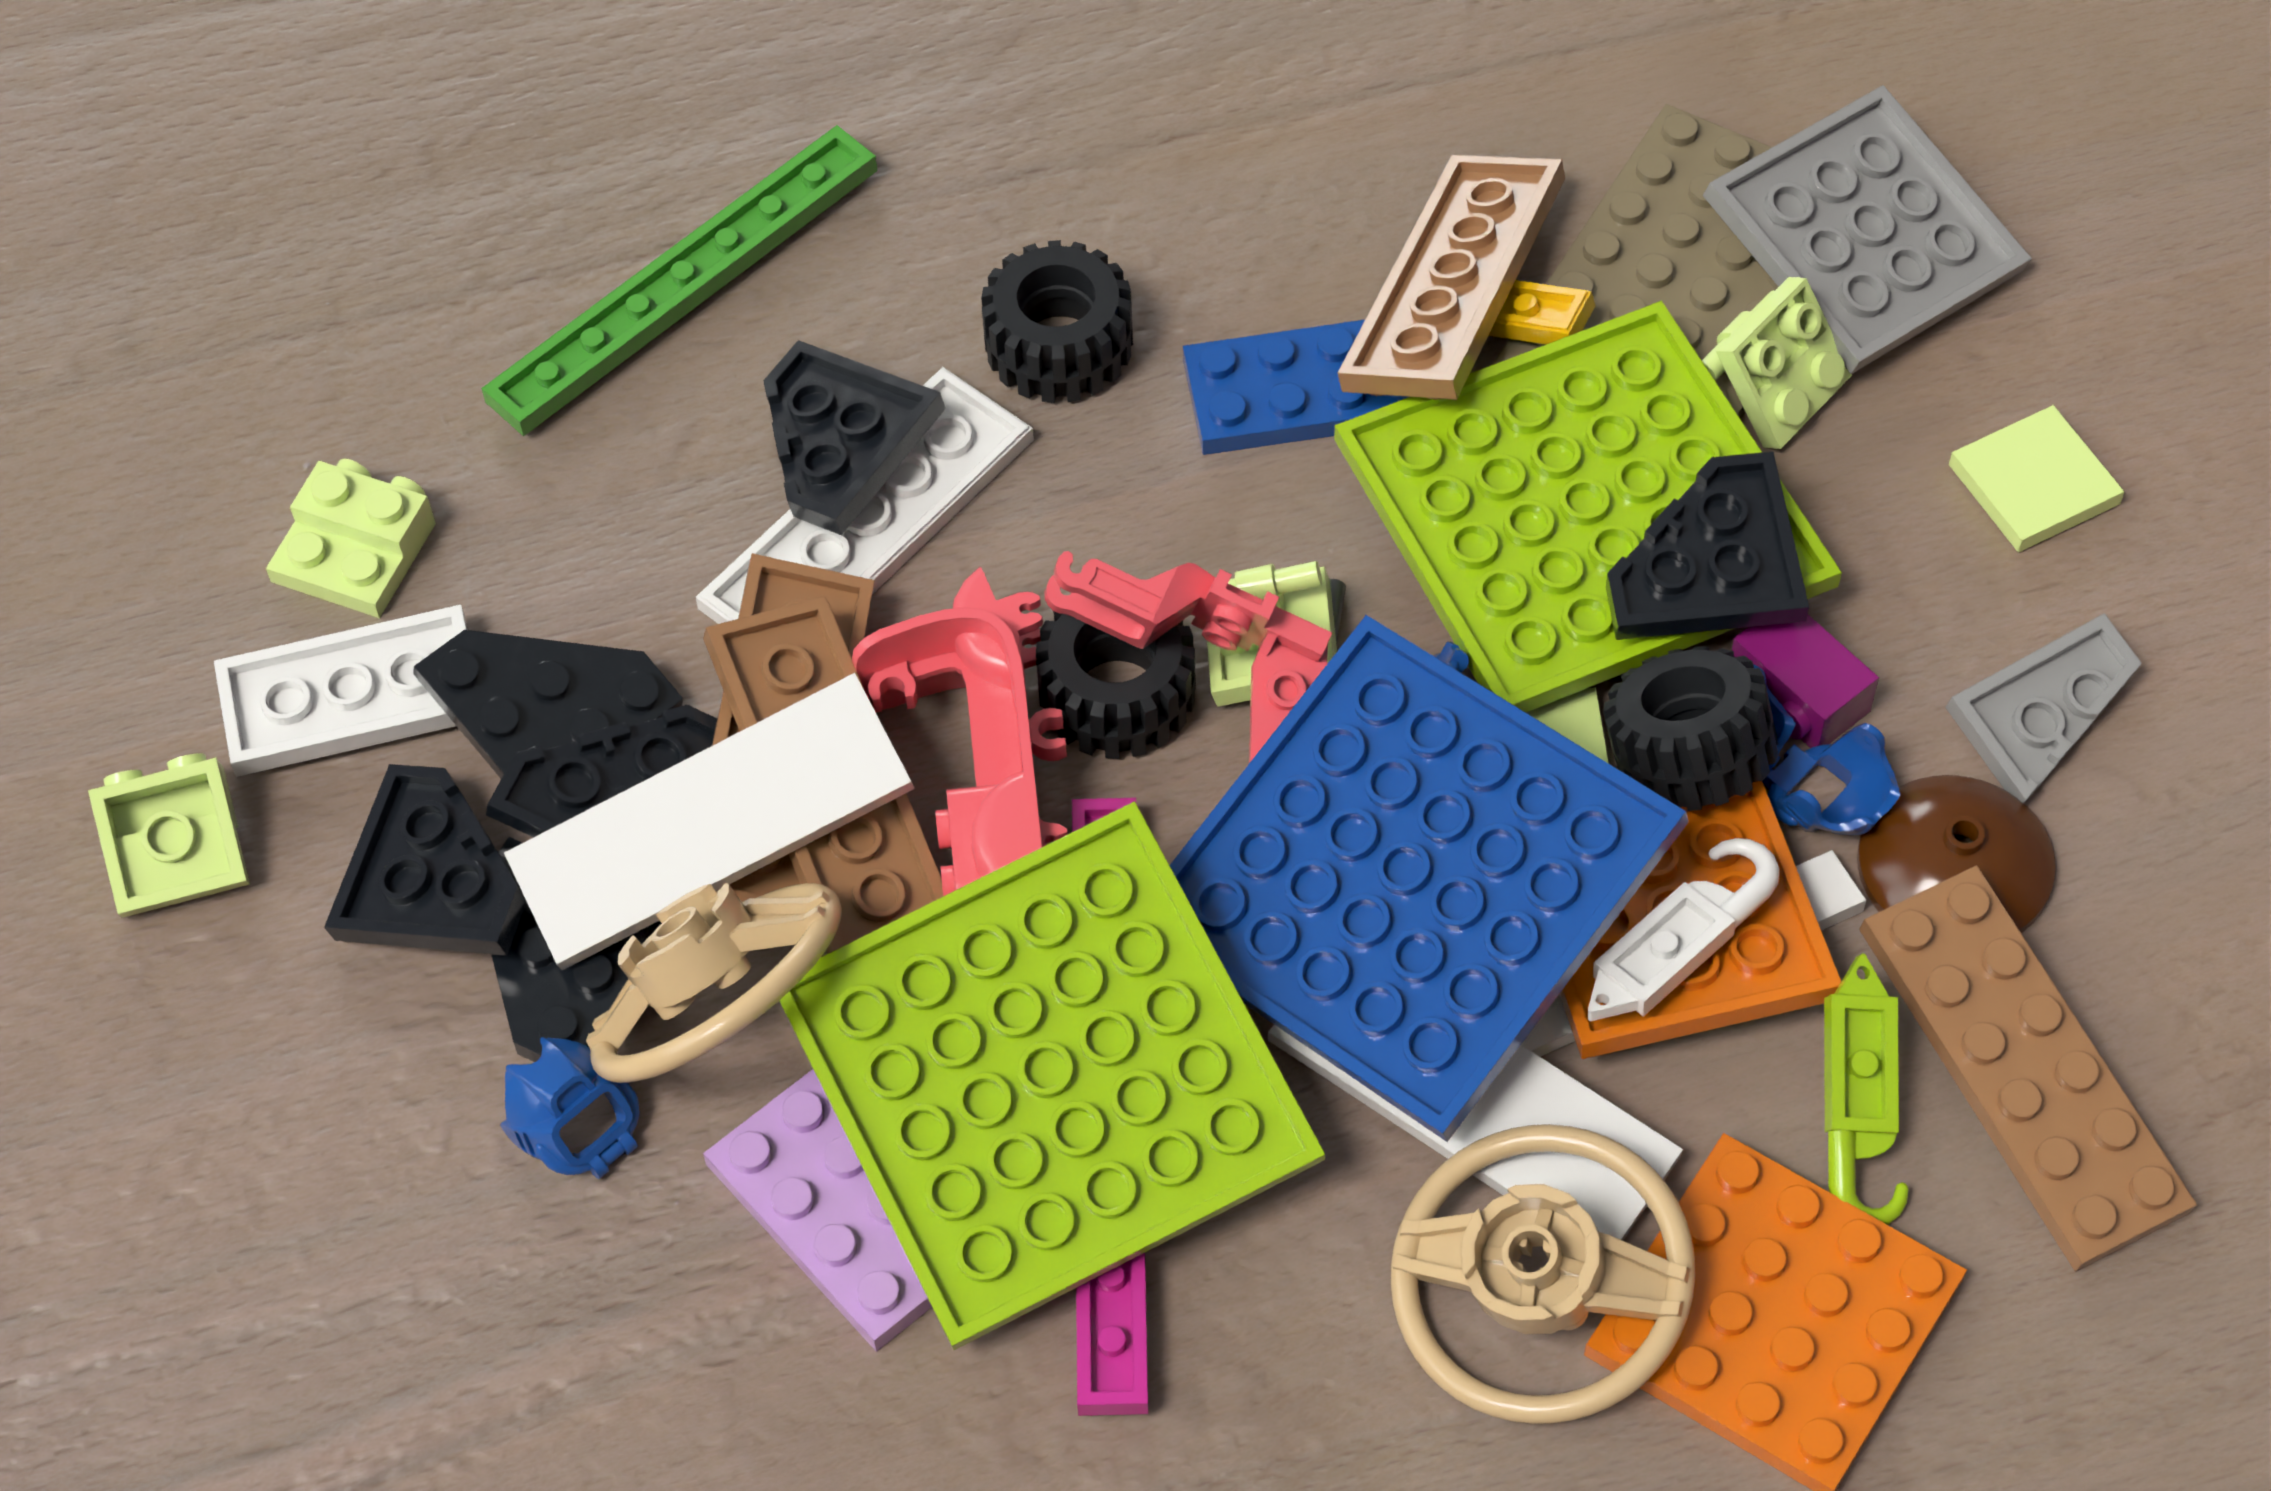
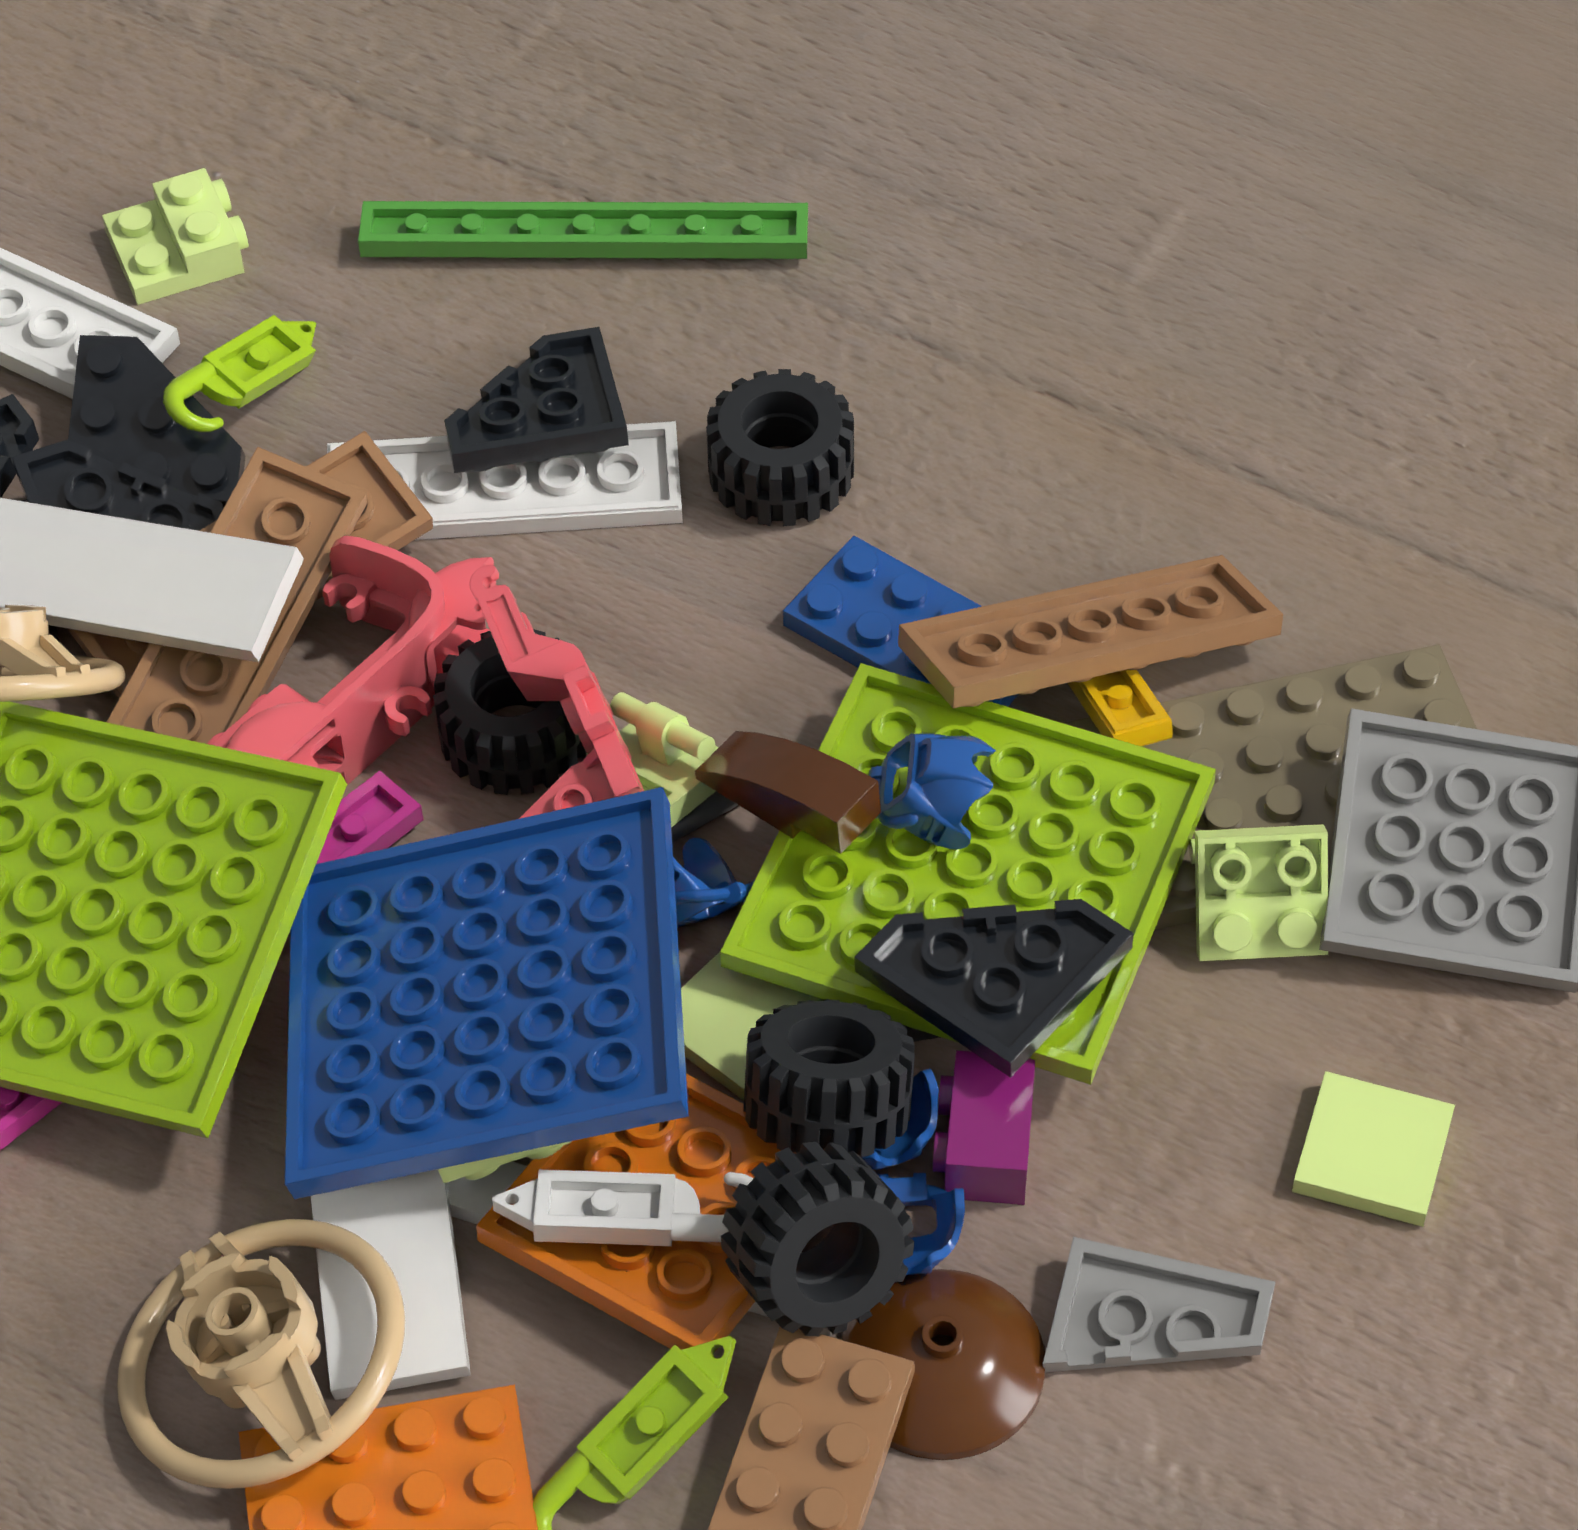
camera: 45 degrees right, 5 degrees down
(567, 592) = (242, 369): none -> lime plate
(1417, 547) = (793, 787): none -> reddish brown slope
(1529, 449) = (938, 787): none -> blue helmet
(1847, 833) = (844, 1271): none -> black tyre

